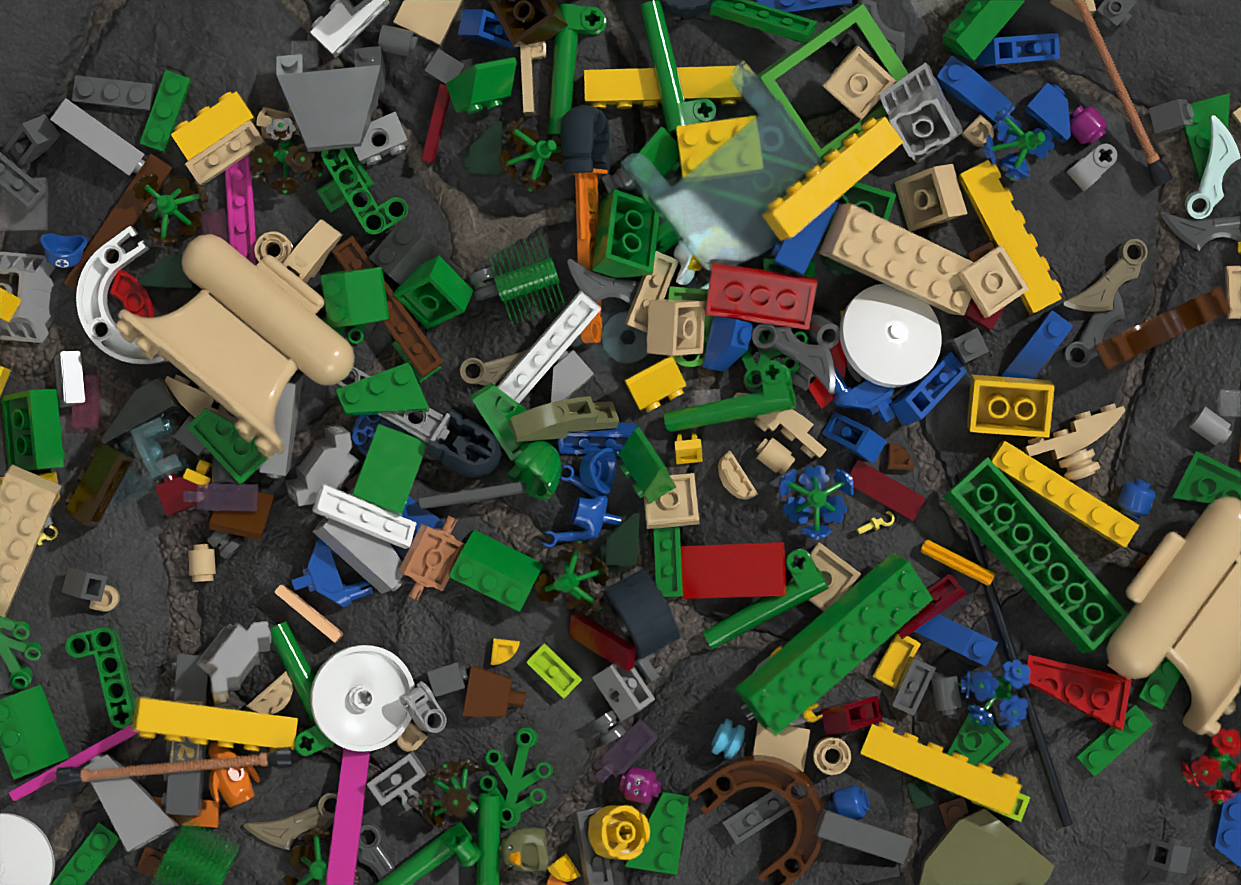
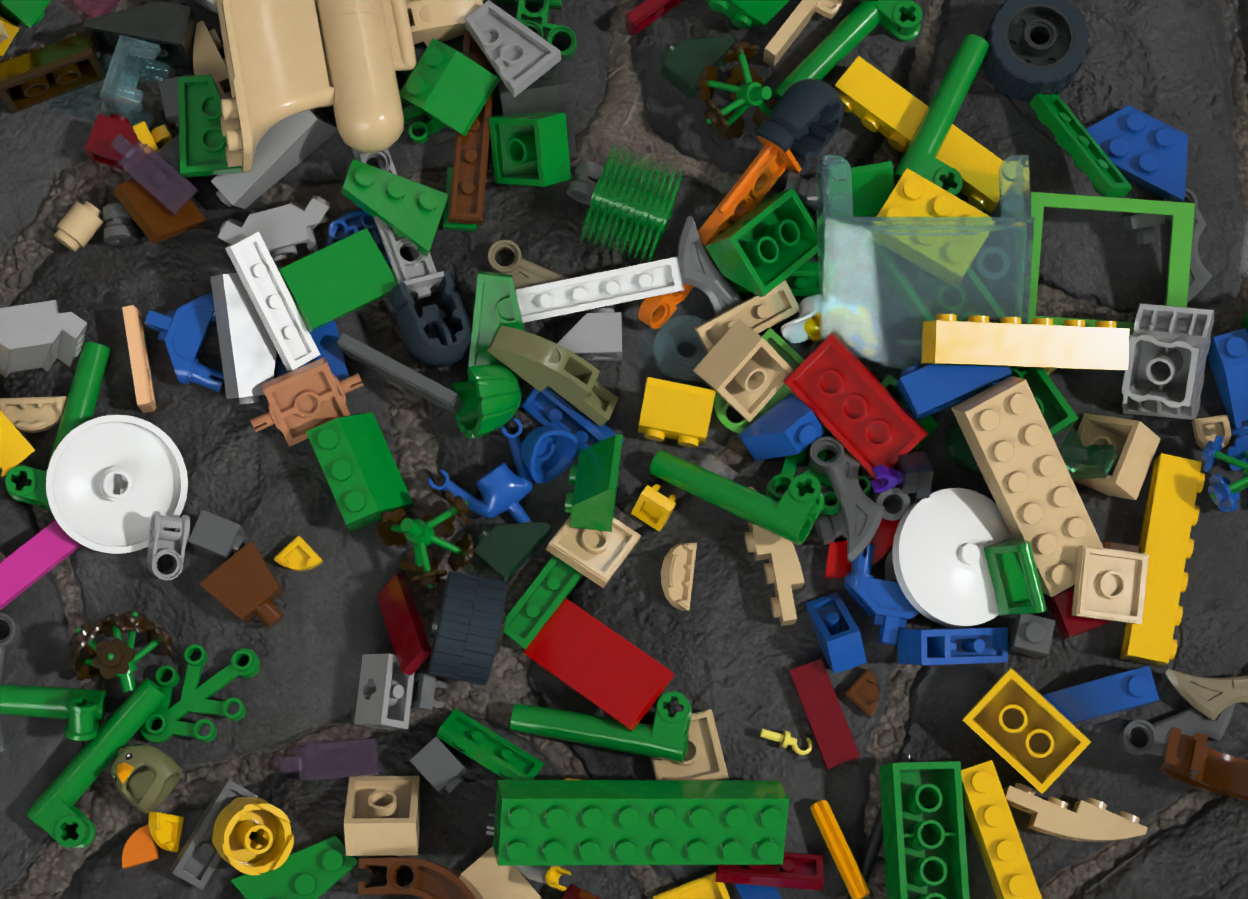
camera: 30 degrees right, 10 degrees down
(372, 241) = (511, 47): none -> light grey wing
(397, 779) = (78, 594): light grey brick -> none
(411, 738) = (130, 567): tan tile -> none
(554, 670) = (331, 617): lime plate -> none
(604, 722) = (337, 712): dark grey wheel -> none
(639, 785) = (317, 807): magenta head -> none
(681, 758) = (382, 816): none -> tan slope
(690, 704) = (439, 766): none -> dark grey brick
(710, 670) = (488, 748): none -> green plate
(728, 739) = (447, 835): medium azure wheel -> none
(775, 456) = (738, 584): tan brick -> none
(826, 310) = (911, 473): none -> black piece
(829, 508) = (757, 645): blue plant -> none
(858, 82) = (1127, 277): tan plate -> none
(920, 216) = (1086, 461): none -> clear green slope
(934, 322) = (1015, 577): none -> green tile
(1079, 464) = (1051, 852): tan wheel -> none

